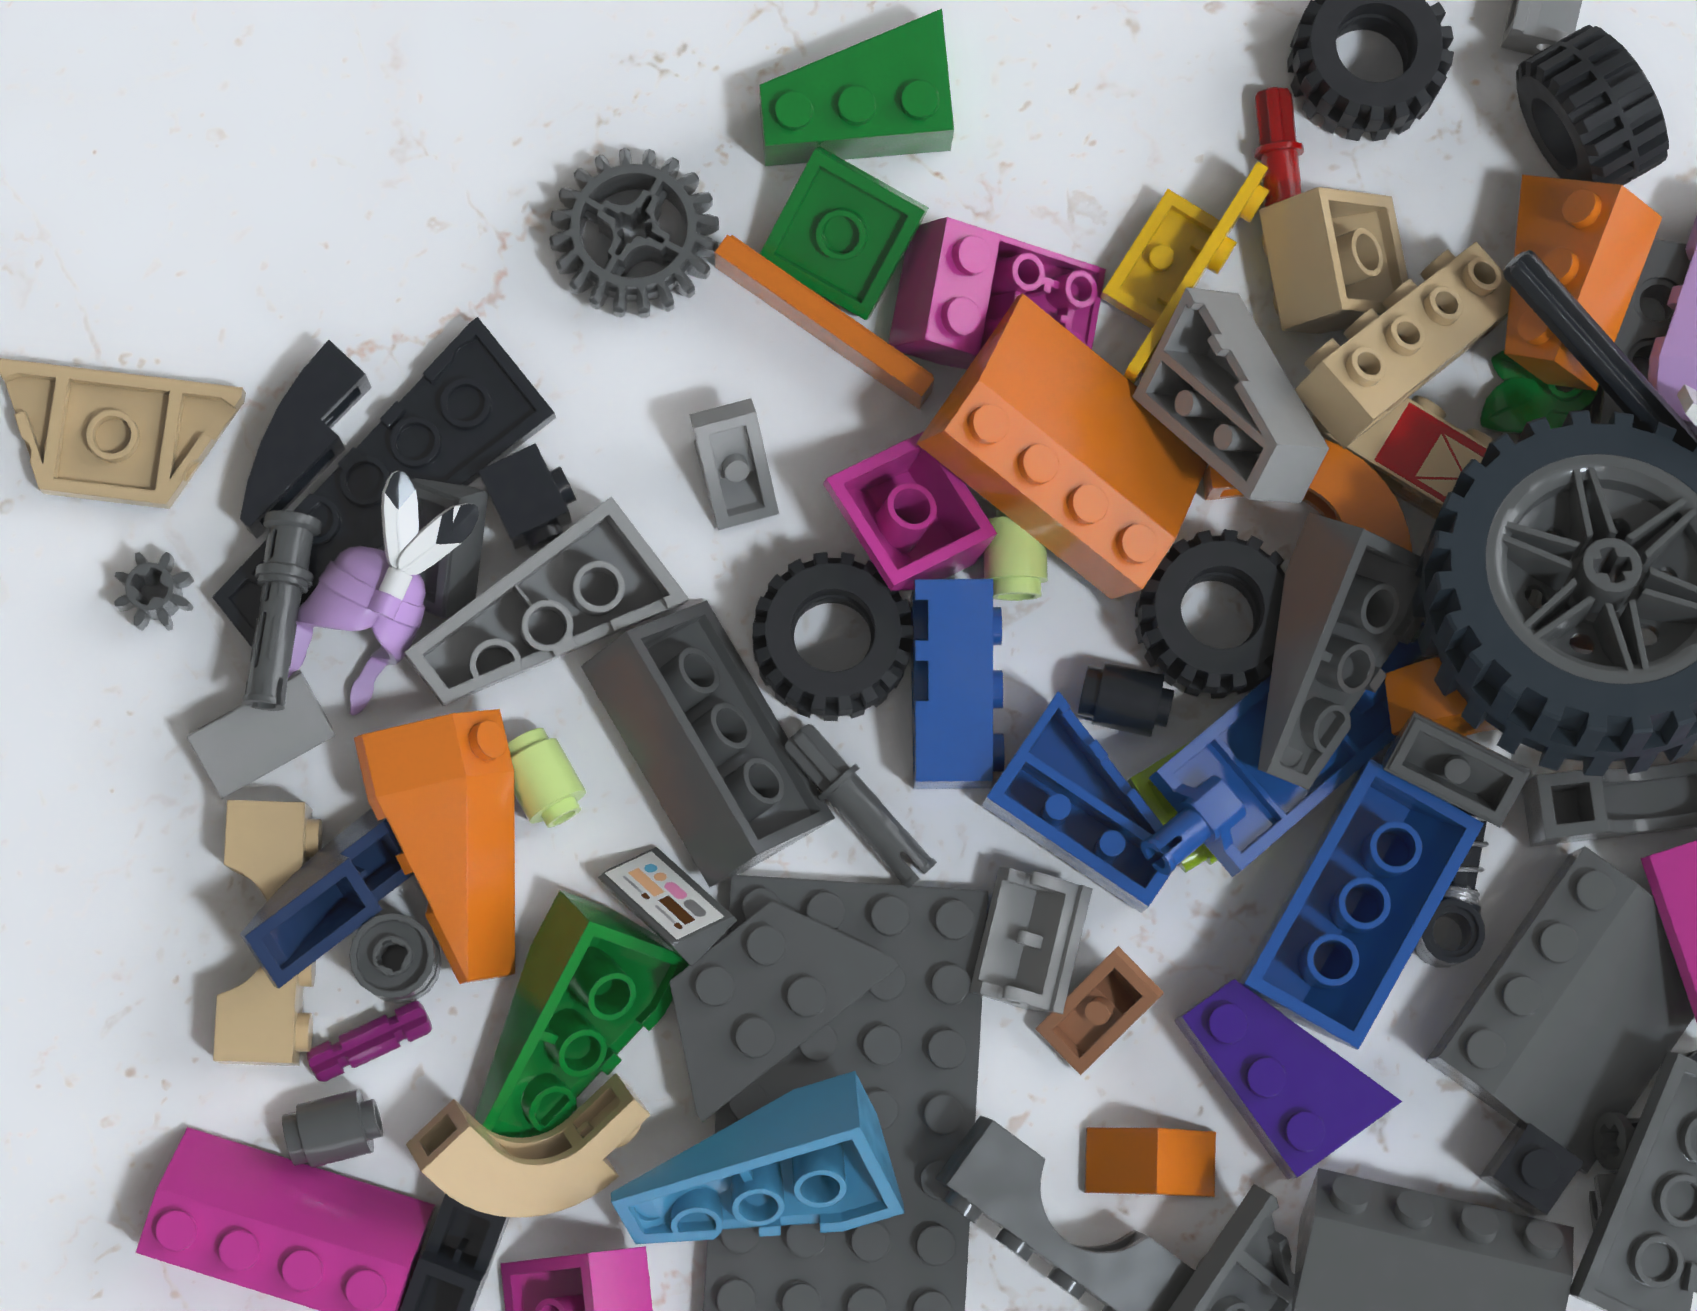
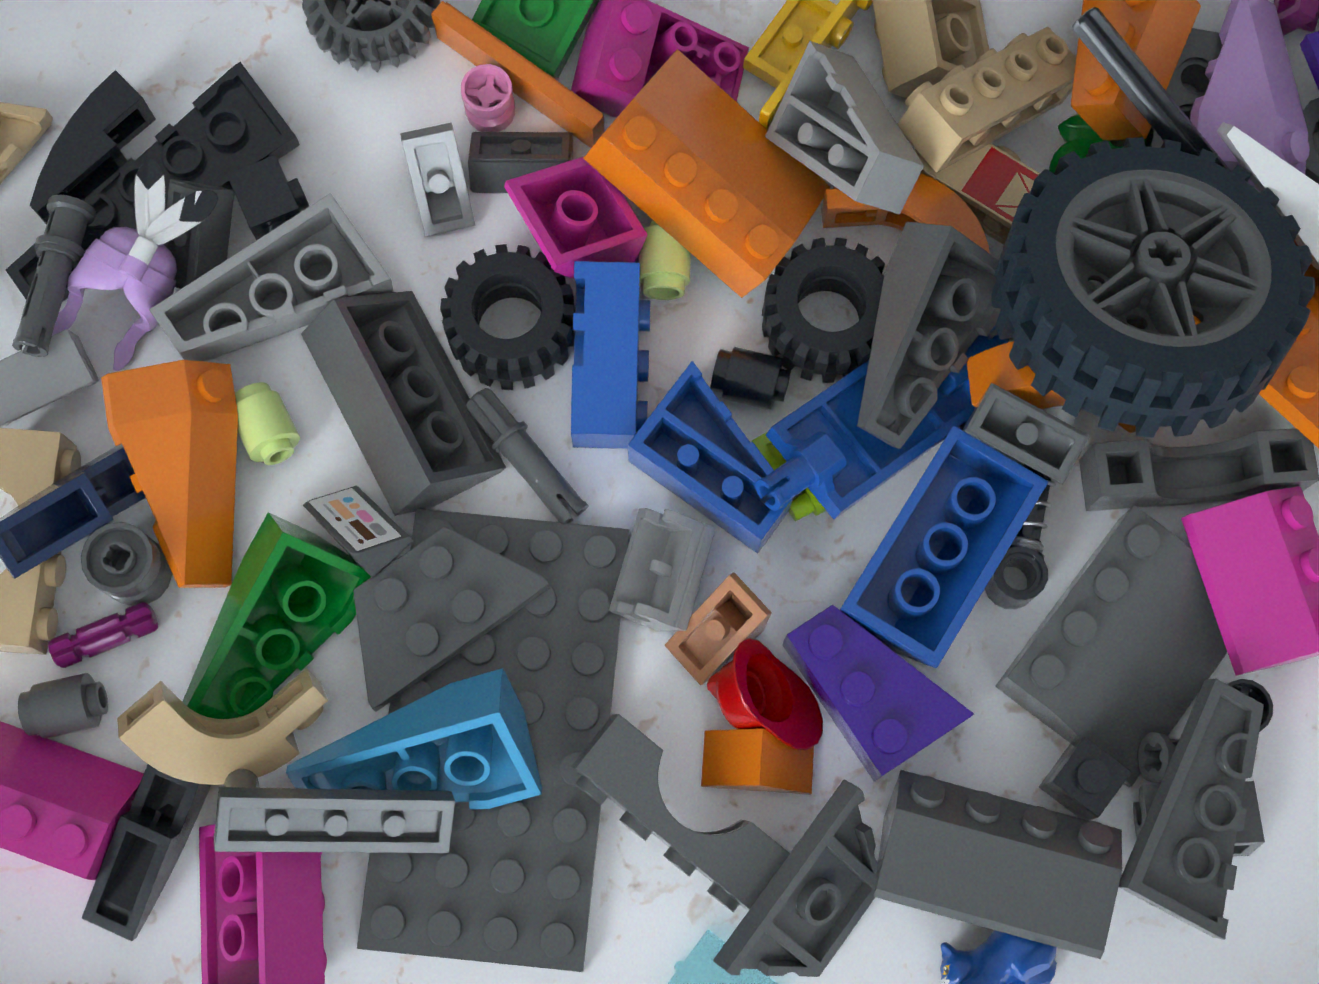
camera: 10 degrees right, 5 degrees down
(666, 1253) = (330, 819): none -> piece
(789, 341) = (485, 87): none -> bright pink wheel
(828, 428) = (507, 155): none -> dark grey slope
(1160, 1086) = (766, 694): none -> red piece

